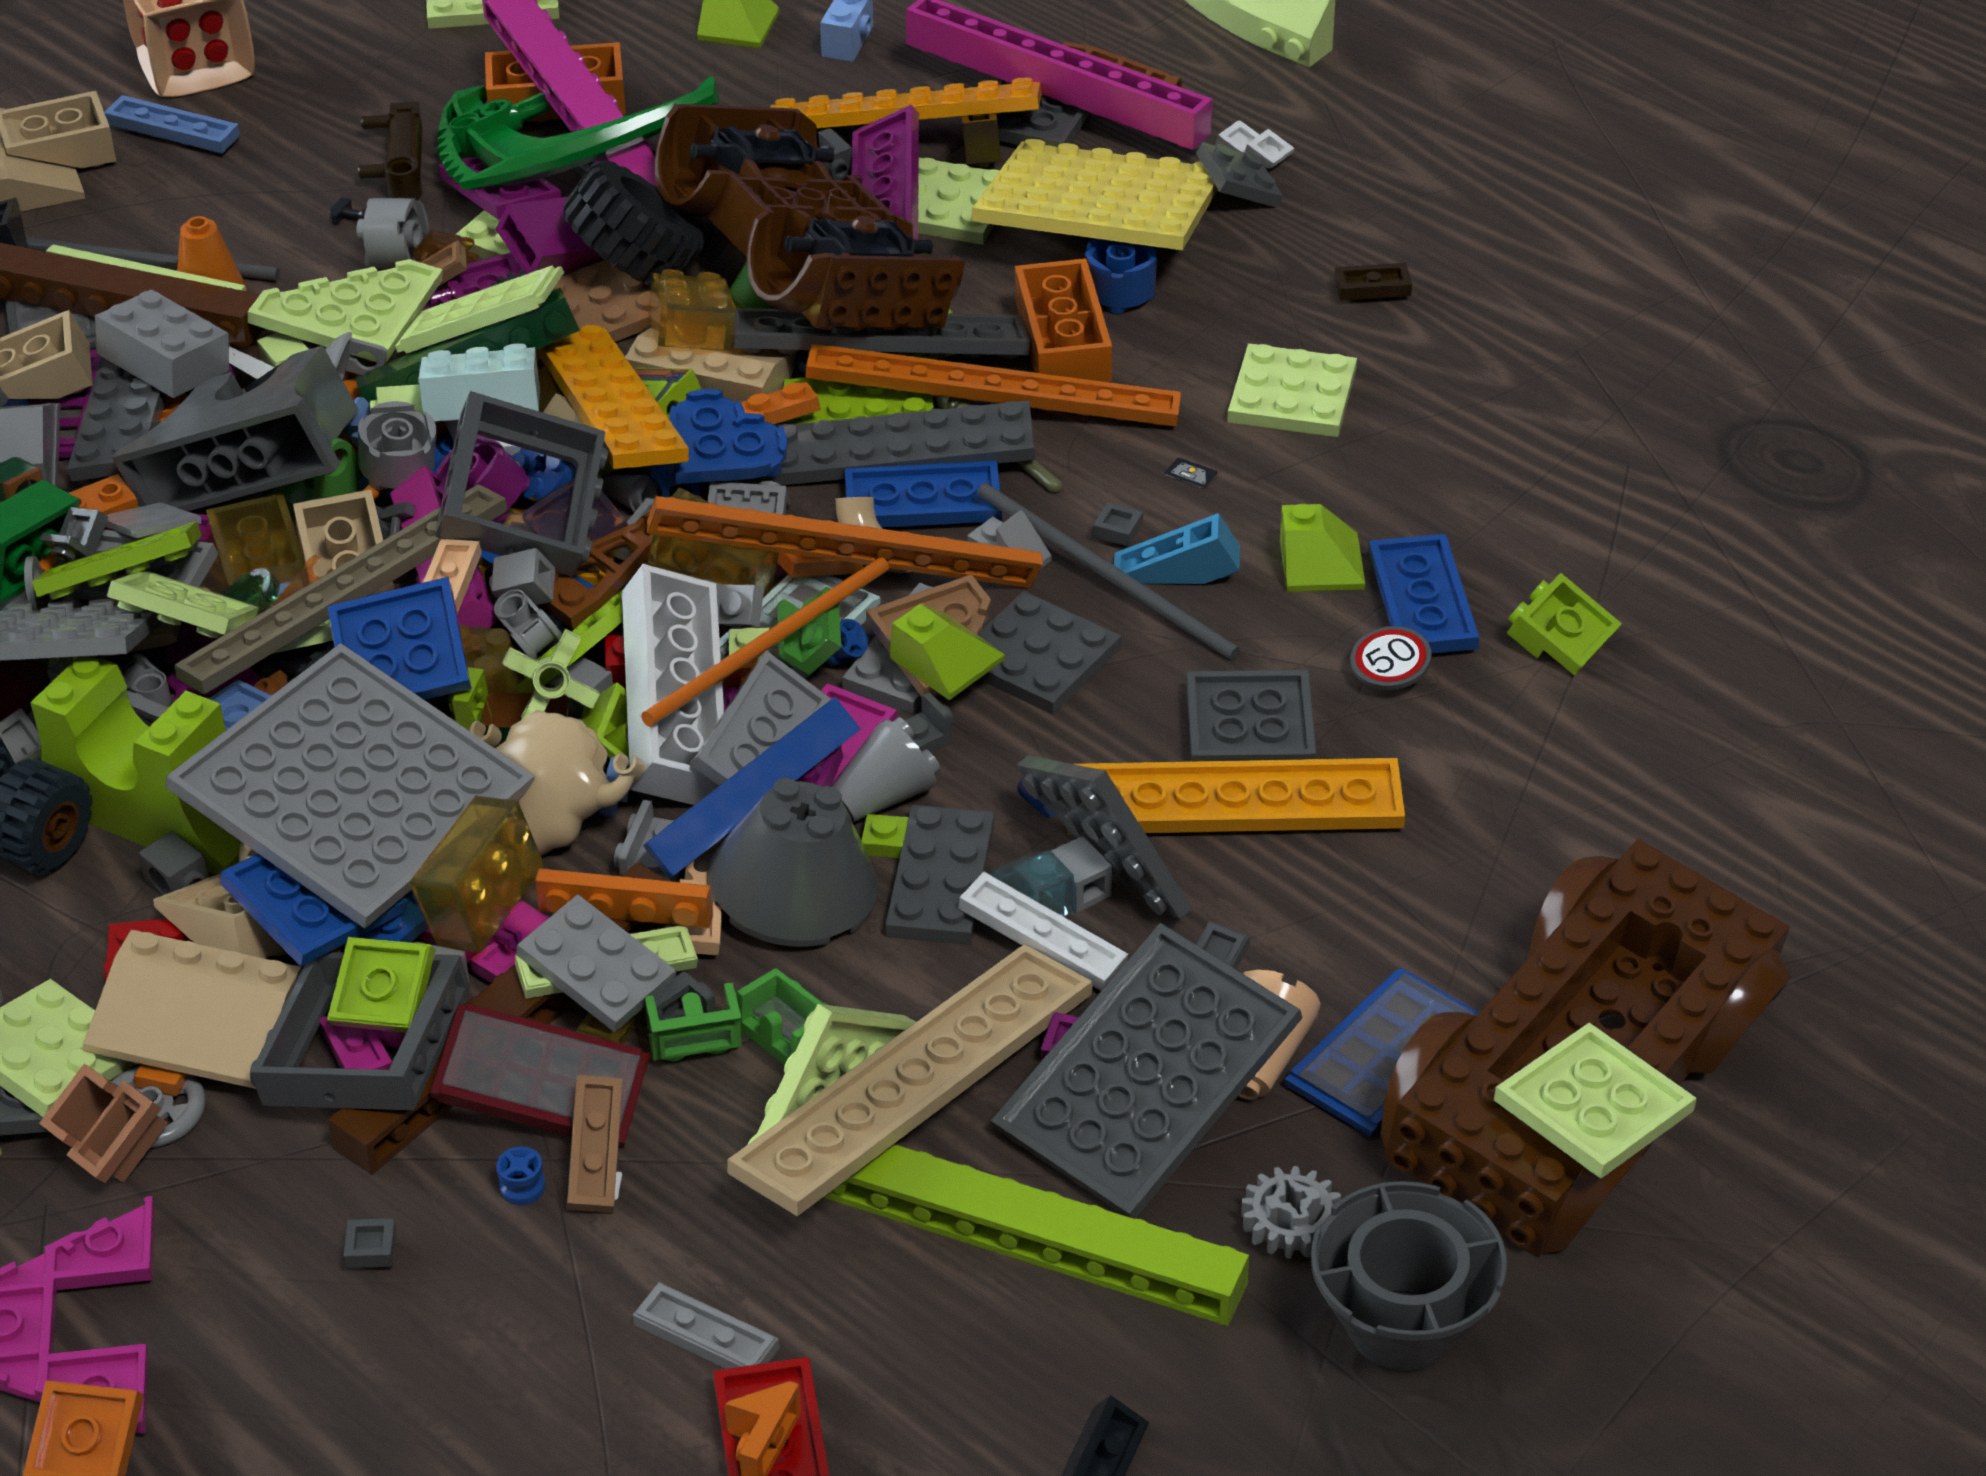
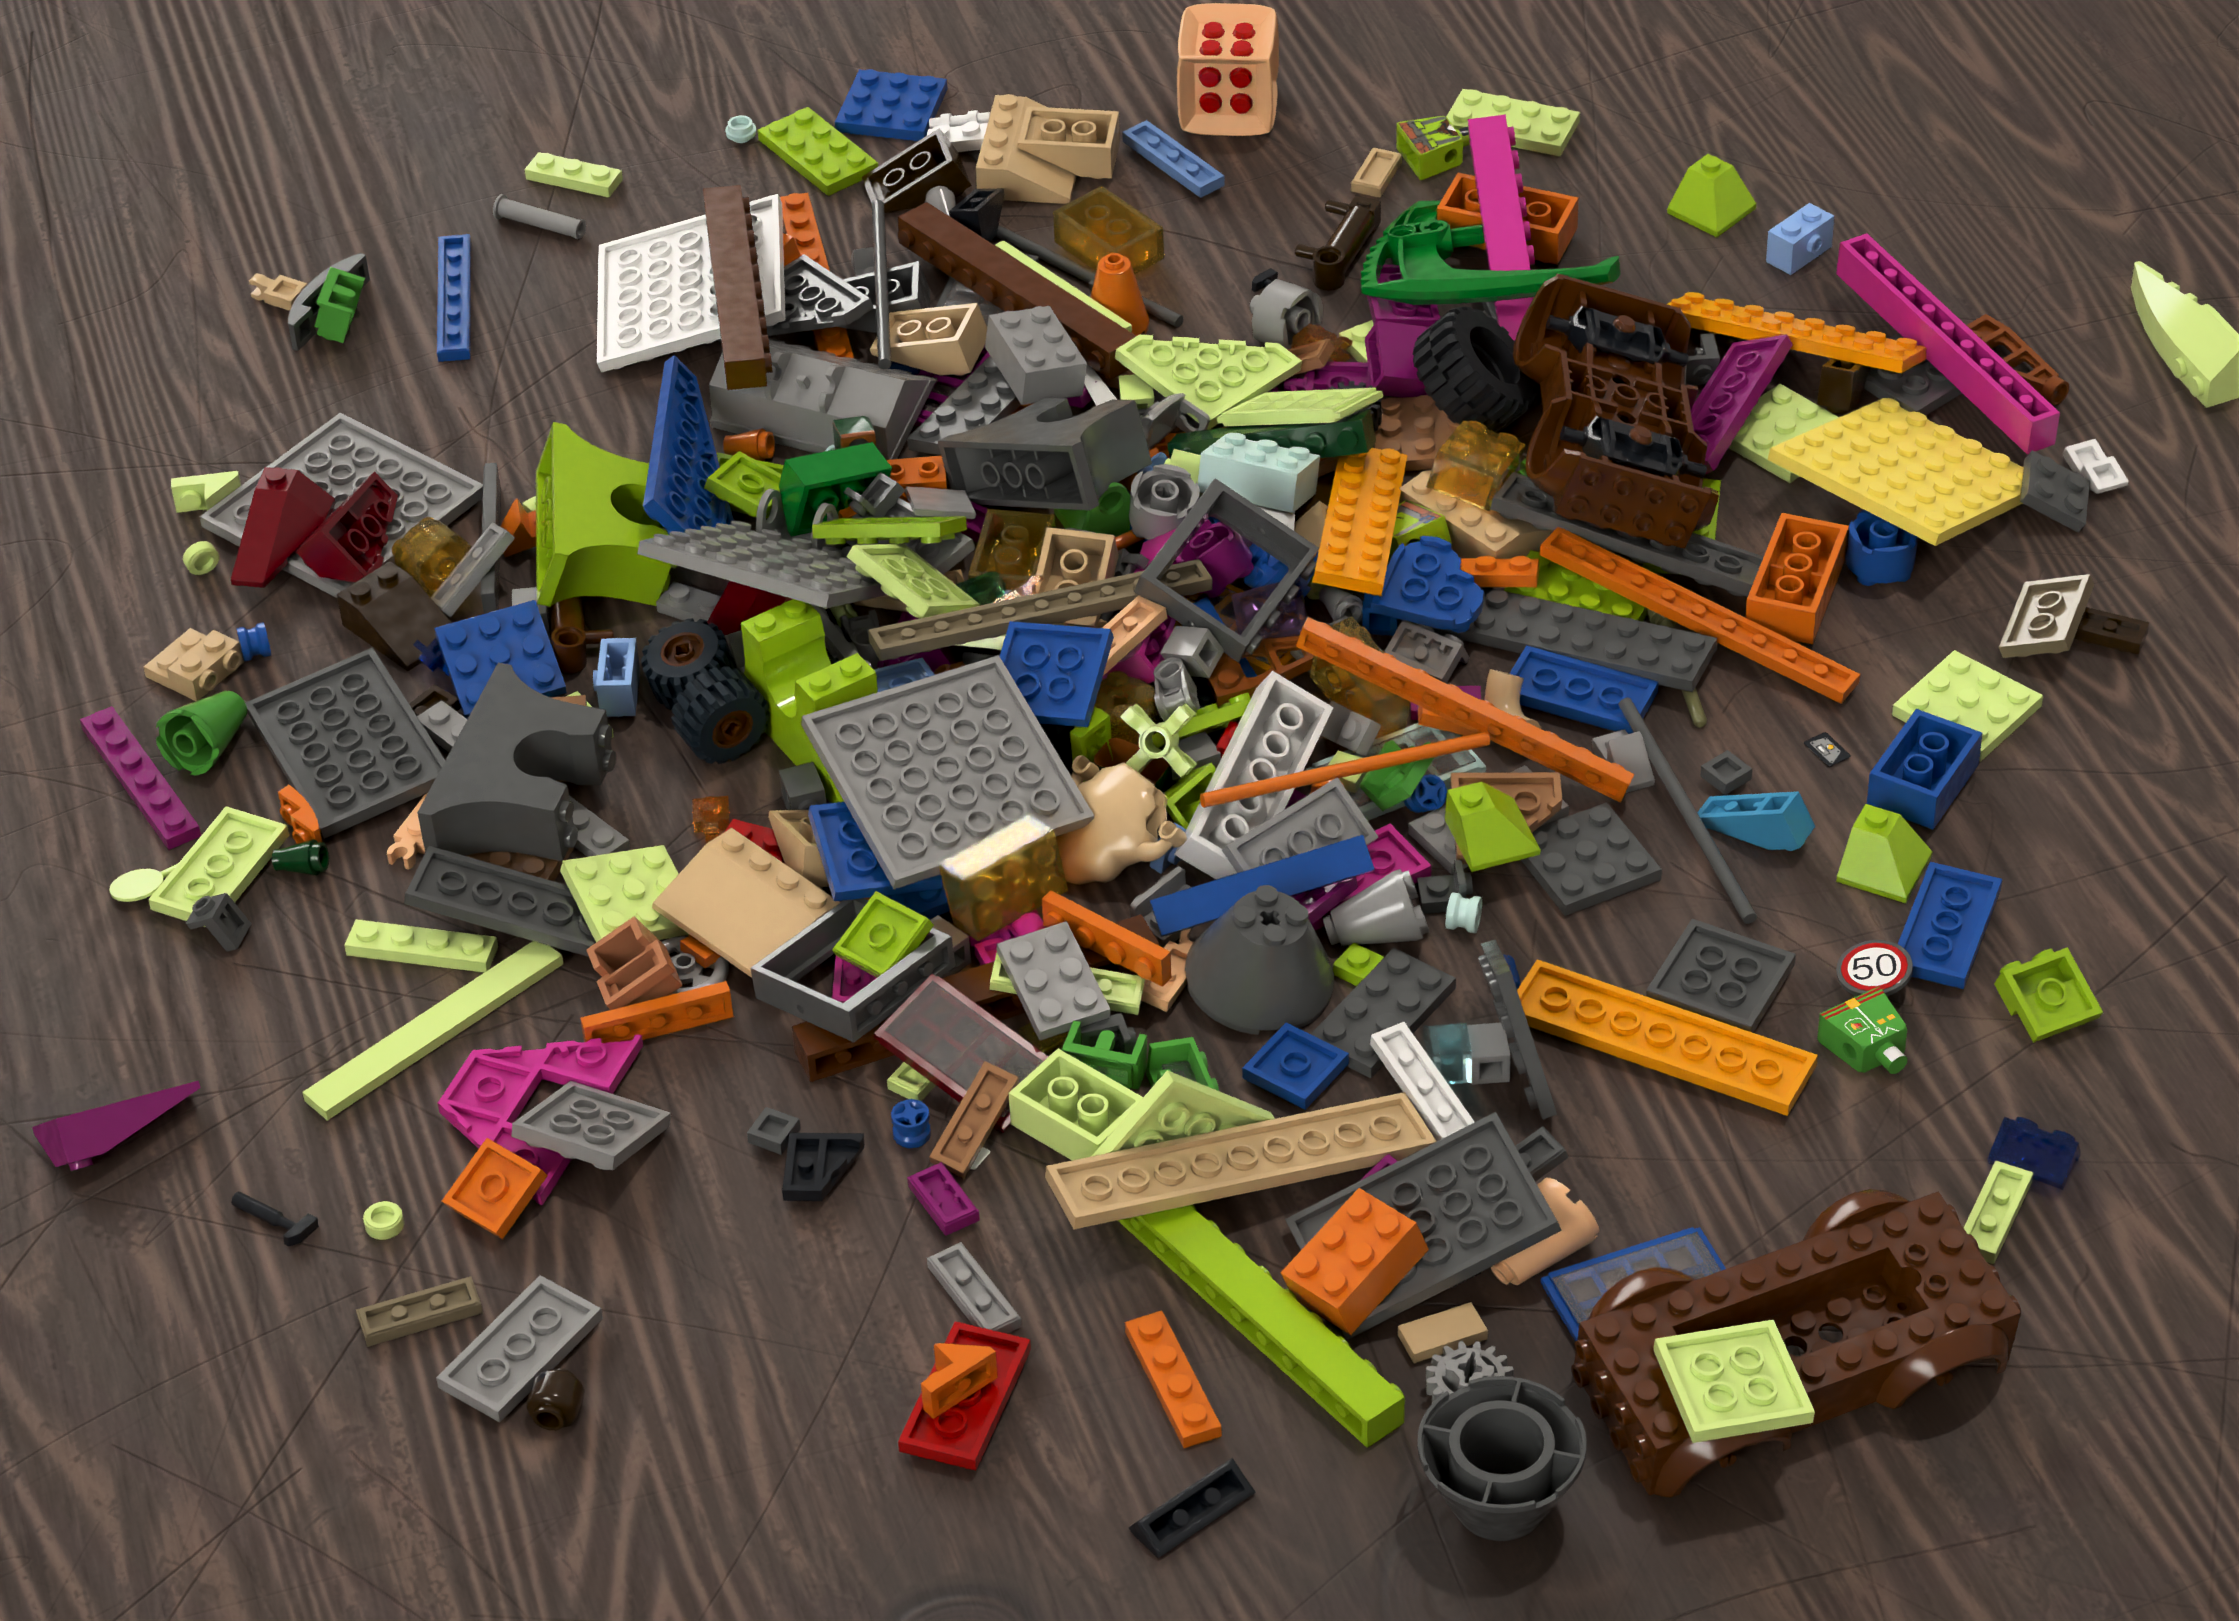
camera: 30 degrees right, 0 degrees up
(81, 931) = (711, 816): none -> clear orange plate
(149, 208) = (1105, 225): none -> clear yellow brick
(158, 1319) = (591, 1125): none -> light grey plate
(159, 1166) = (661, 1015): none -> orange plate
(388, 80) = (1376, 172): none -> tan tile
(430, 40) = (1431, 145): none -> lime torso
(442, 1259) = (817, 1163): none -> black wing
(487, 1133) = (909, 1083): none -> yellowish green tile
(609, 1243) = (943, 1199): none -> magenta plate
(700, 1090) = (1069, 1105): none -> yellowish green brick
(892, 959) = (1295, 1066): none -> blue plate
(959, 744) = (1463, 912): none -> light aqua wheel
(982, 1337) = (1173, 1379): none -> orange plate
(1109, 1132) = (1355, 1261): none -> orange brick
(1225, 1174) = (1431, 1333): none -> tan tile
(1305, 455) = (1924, 768): none -> blue brick
(1313, 286) = (2046, 616): none -> dark tan plate
(1425, 721) = (1865, 1032): none -> bright green torso
(1658, 775) = (2035, 1150): none -> clear blue bracket
(1659, 825) = (1997, 1208): none -> yellowish green plate

